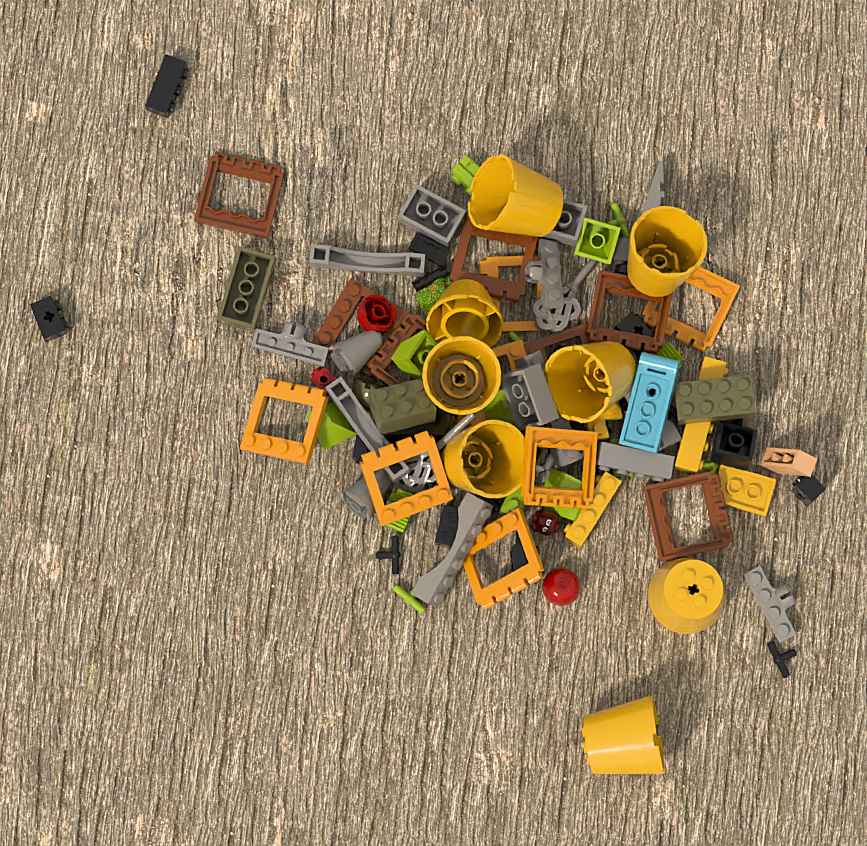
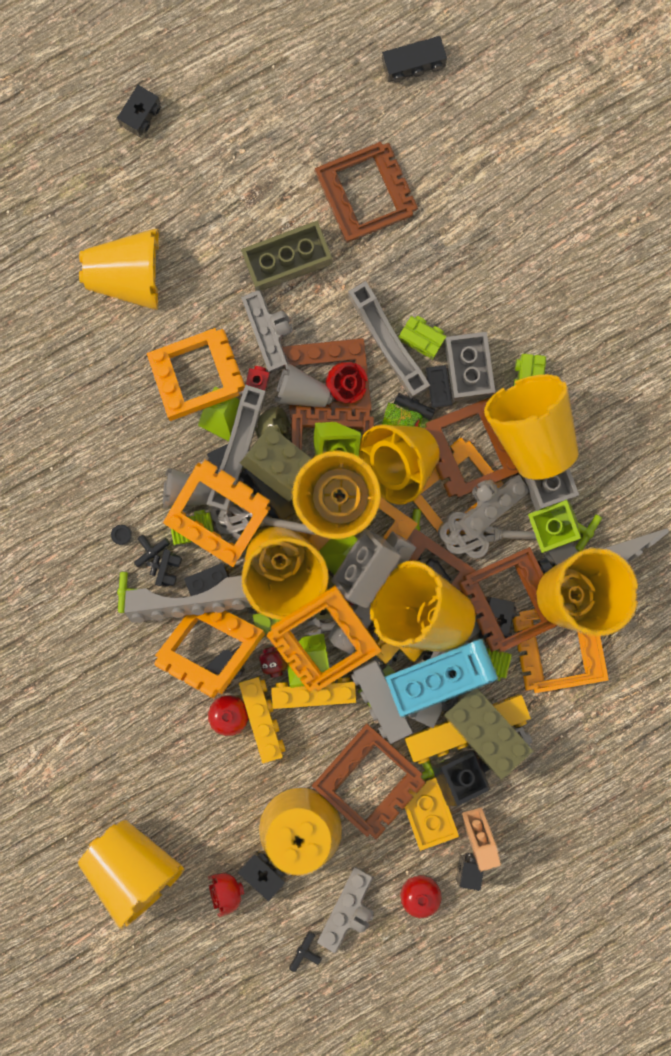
camera: 60 degrees right, 5 degrees up
(162, 417) = (123, 268): none -> yellow cone
(364, 568) = (121, 534): none -> black tile
(382, 234) = (422, 337): none -> lime brick
(410, 545) = (164, 578): none -> black hips
(582, 562) = (261, 719): none -> yellow brick
(693, 684) = (225, 893): none -> red cylinder
(711, 649) = (268, 885): none -> black brick
(800, 541) = (420, 896): none -> red cylinder

